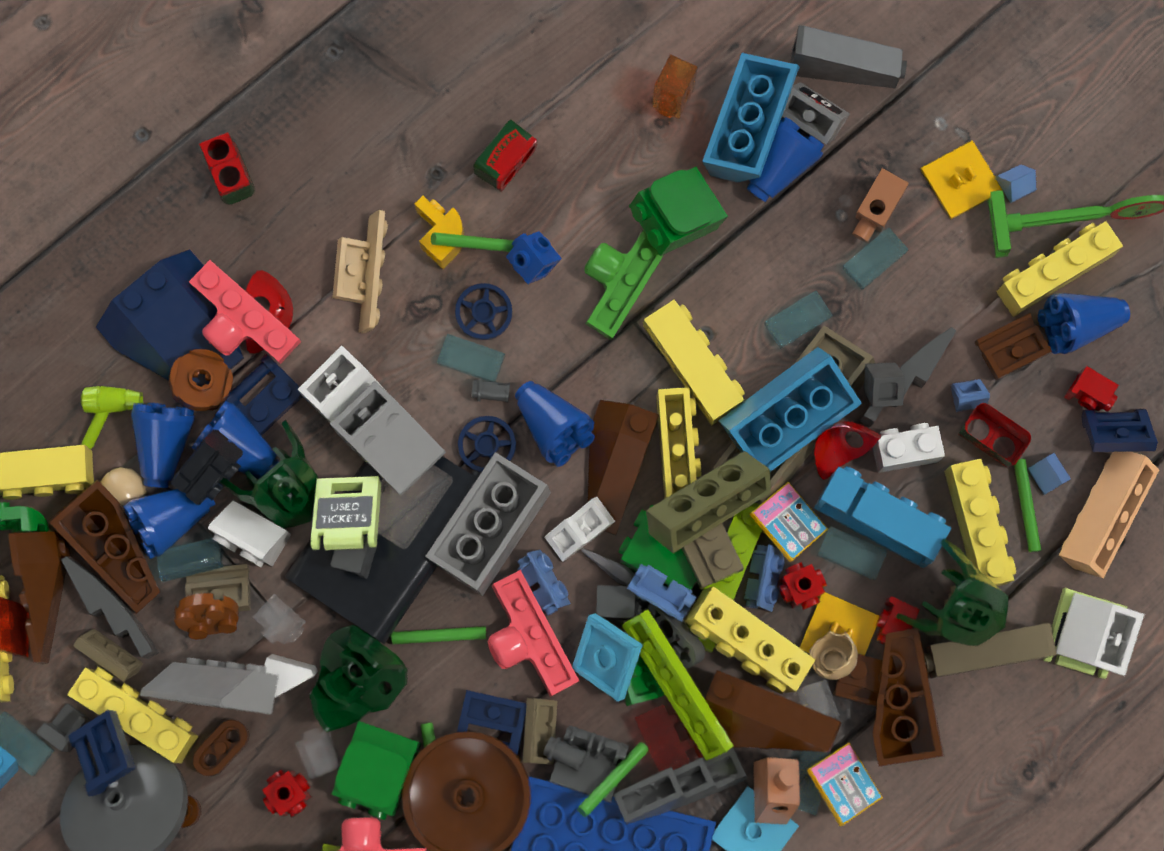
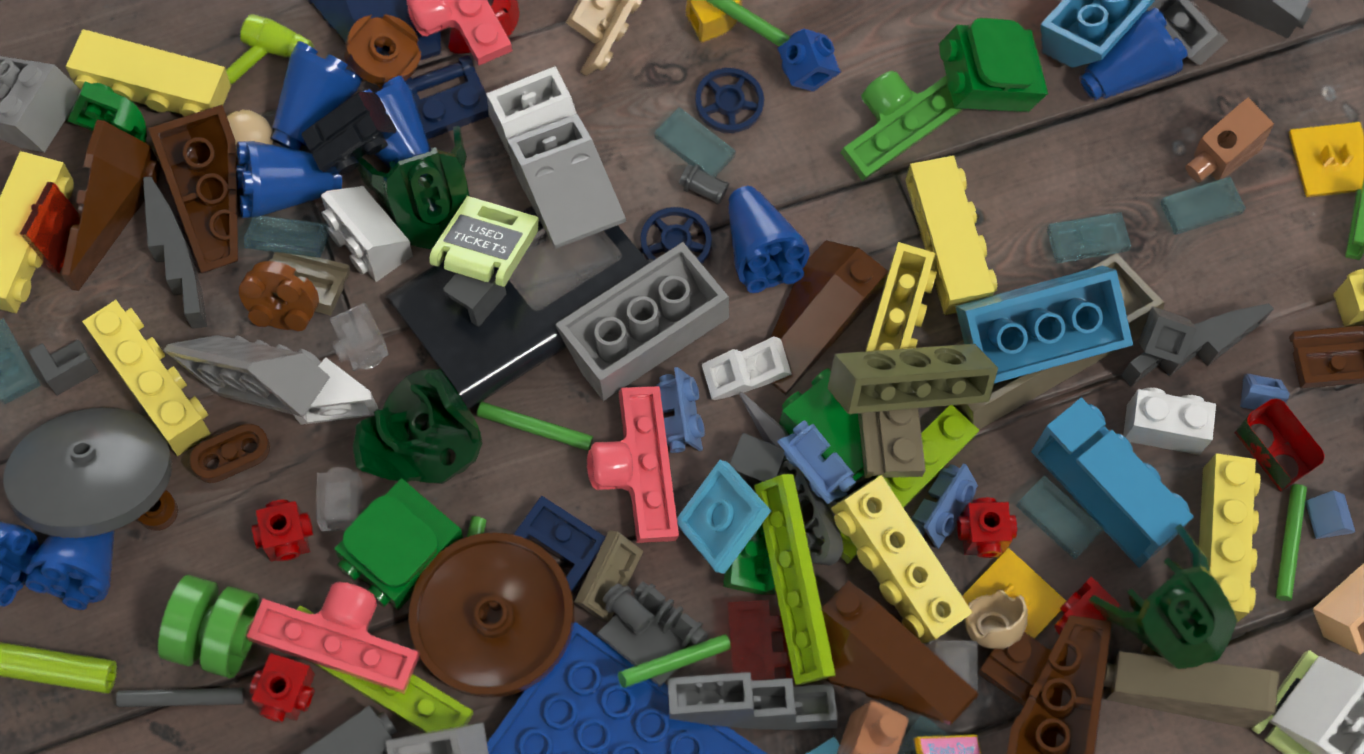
camera: 15 degrees right, 10 degrees down
(108, 655) = (148, 302): dark tan plate -> none
(109, 751) = (100, 398): dark blue plate -> none
(788, 521) = (996, 450): piece -> none
(834, 451) = (1081, 379): red piece -> none

